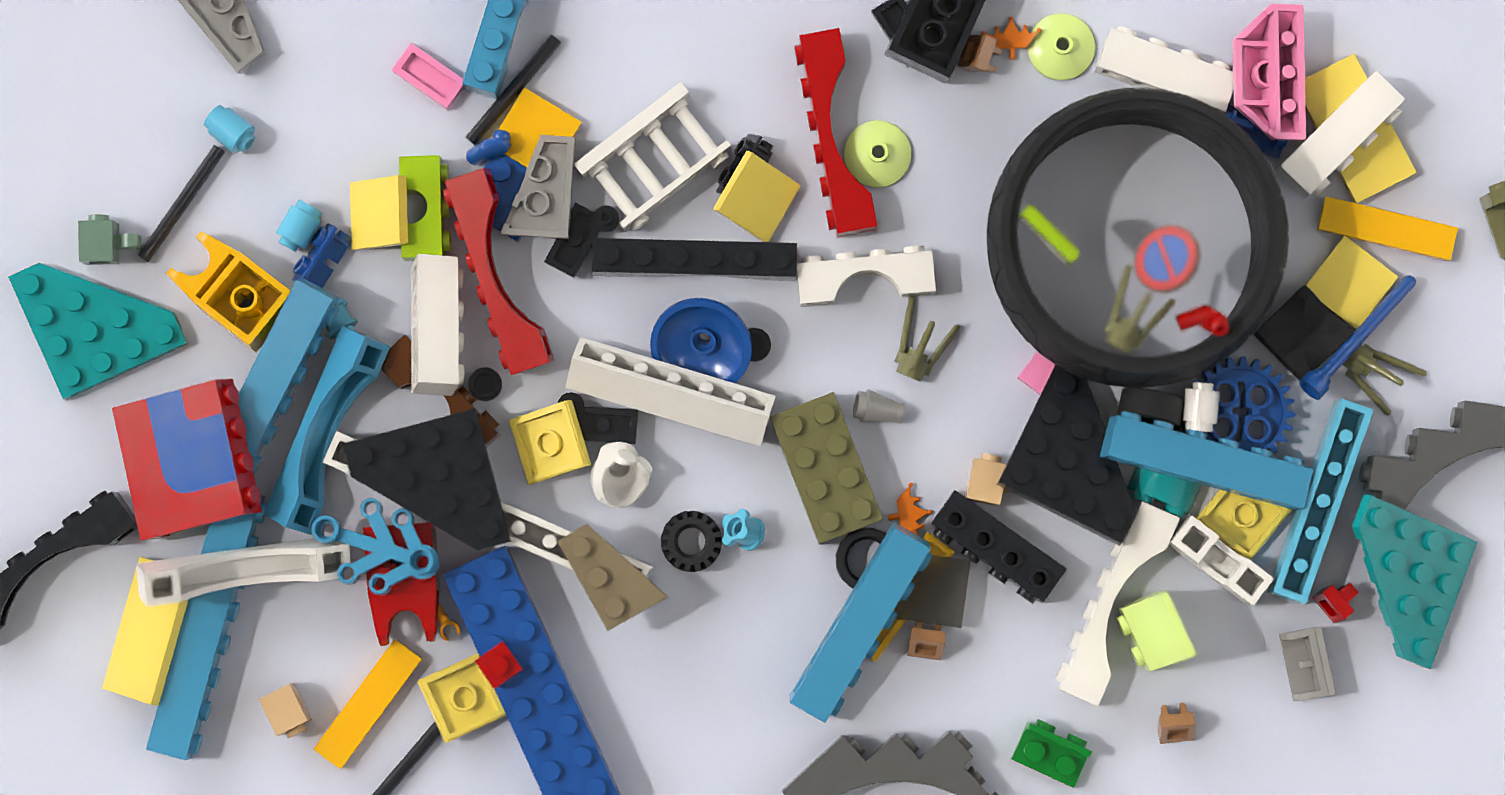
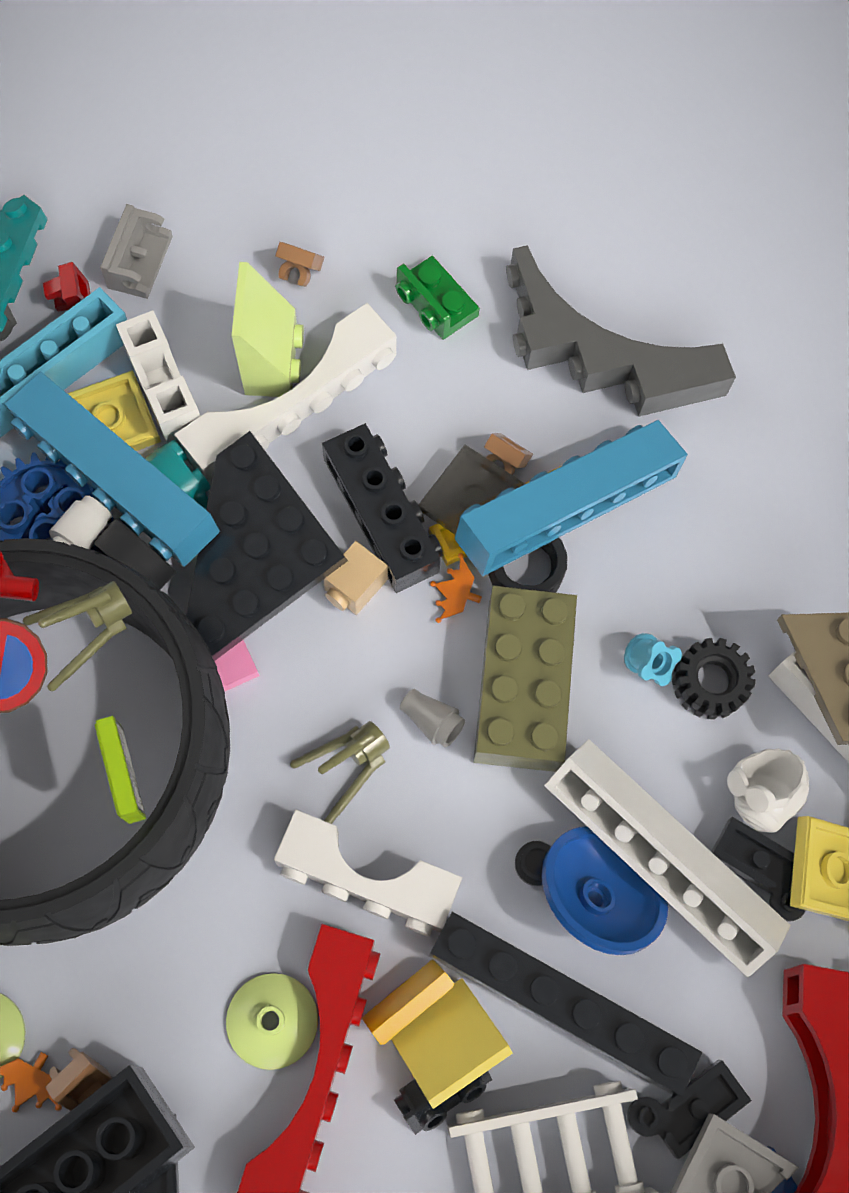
camera: 160 degrees left, 15 degrees down
(795, 208) = (407, 1002): none -> yellow tile

